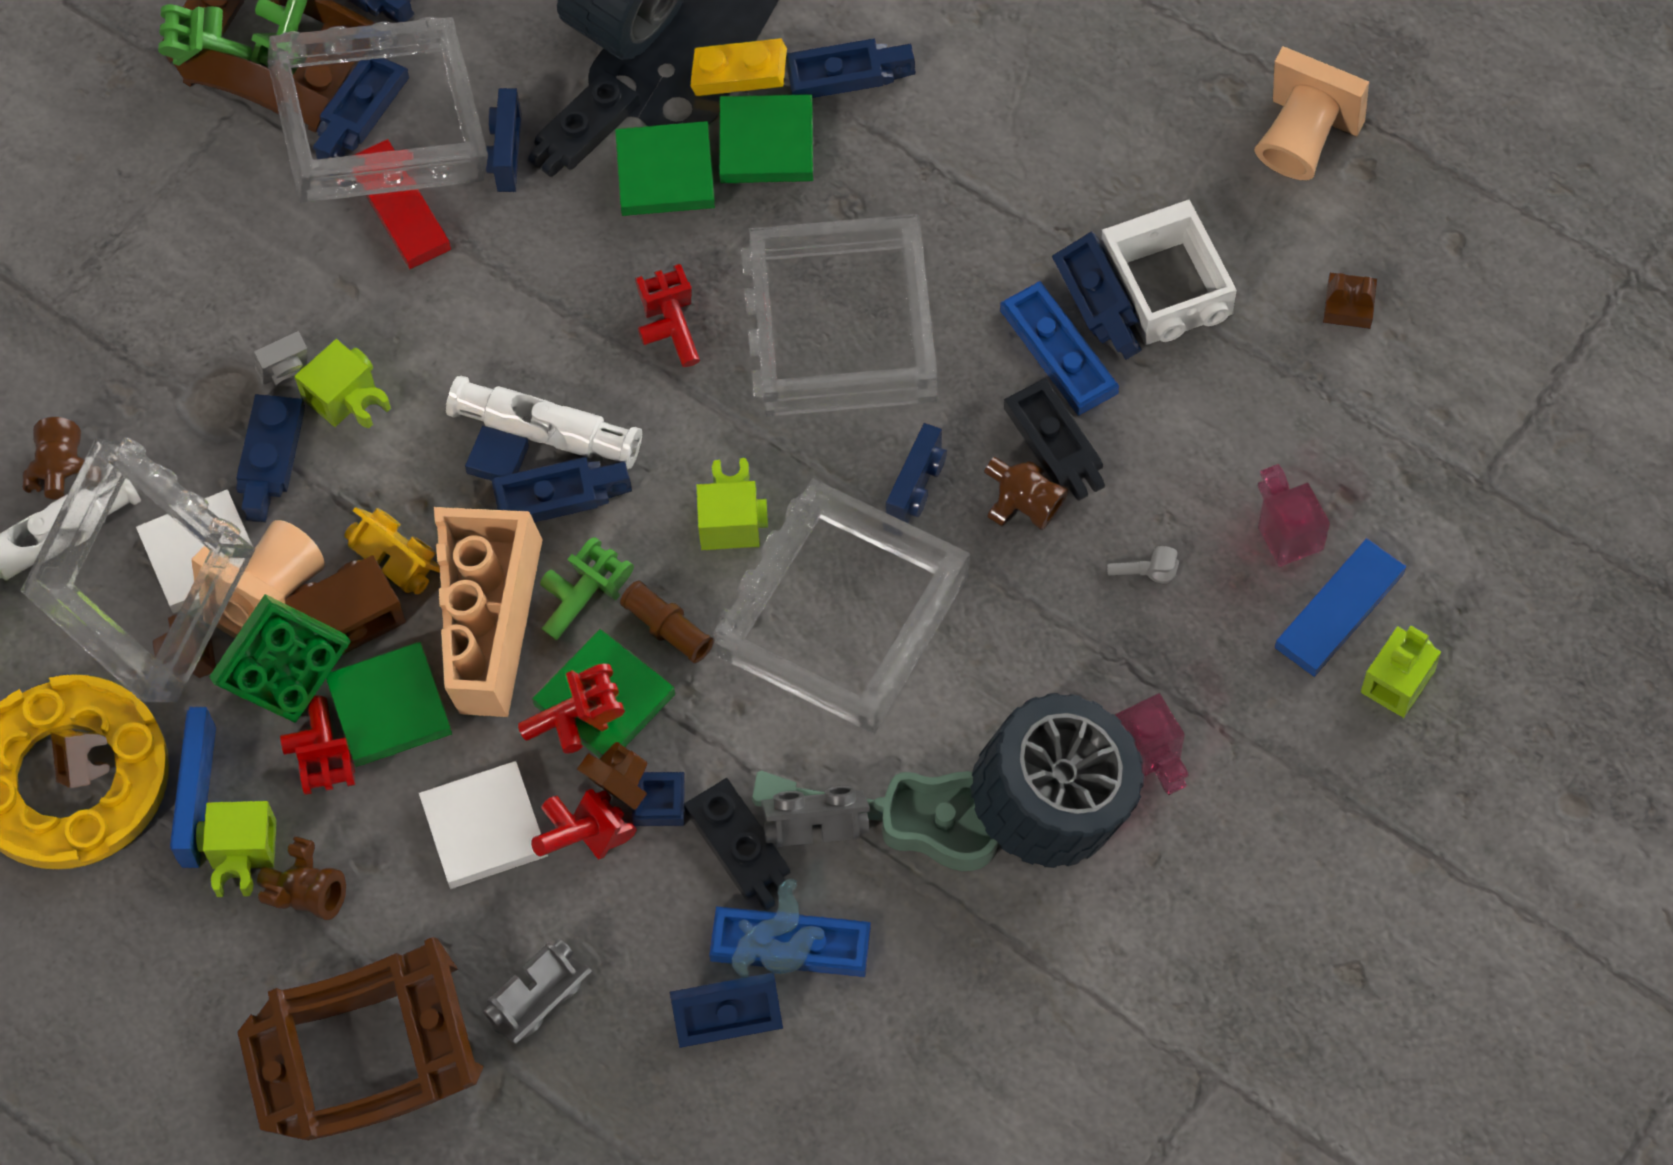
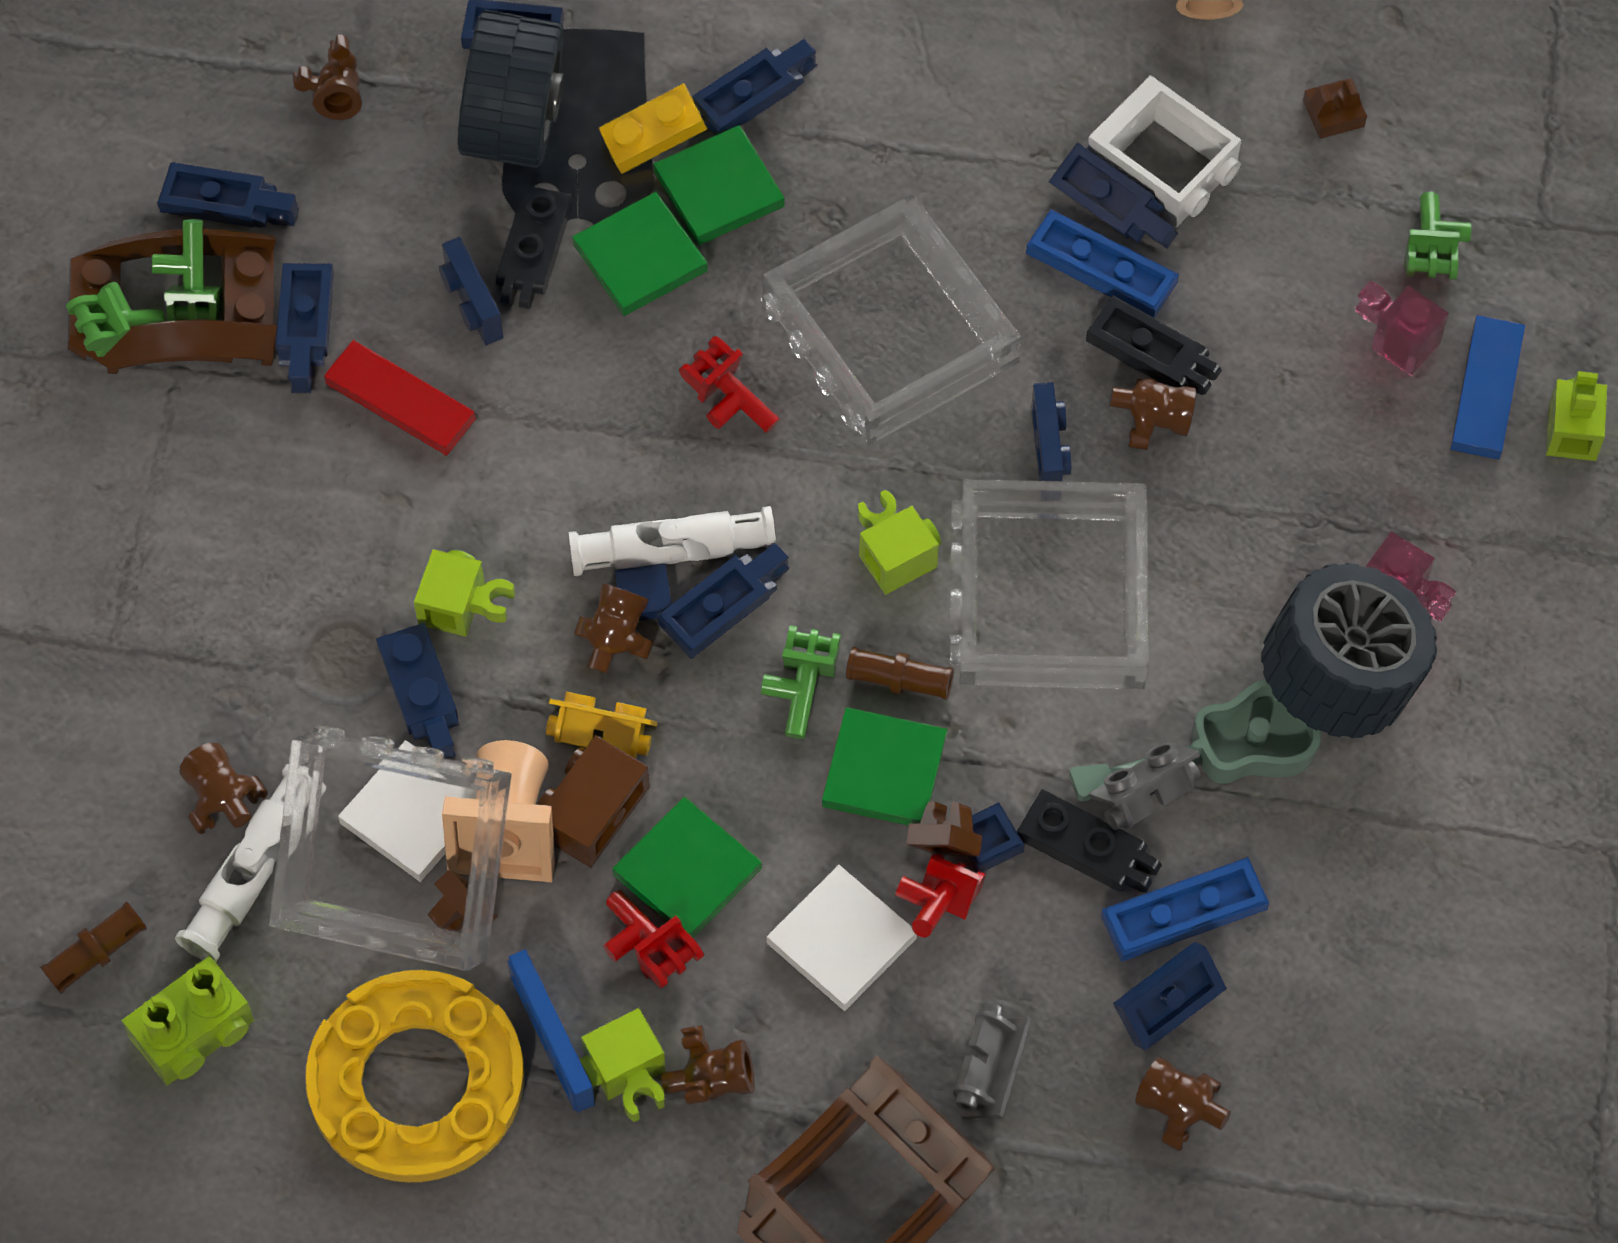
camera: 30 degrees left, 0 degrees up
(71, 759) = (420, 1058): reddish brown tile -> none
(279, 658) = (572, 870): green tile -> none
(281, 360) = (393, 593): light grey plate -> none
(382, 170) = (370, 377): clear window -> none
(448, 470) = (614, 627): none -> reddish brown piece
(485, 601) = (716, 719): light nougat wedge -> none
(591, 701) = (866, 799): red arm -> none
(681, 1104) = (1181, 1100): none -> reddish brown piece
(776, 955) = (1181, 926): clear light blue piece -> none
(1160, 569) = (1311, 424): light grey hand -> none
(1363, 461) = (1436, 244): none -> bright green arm

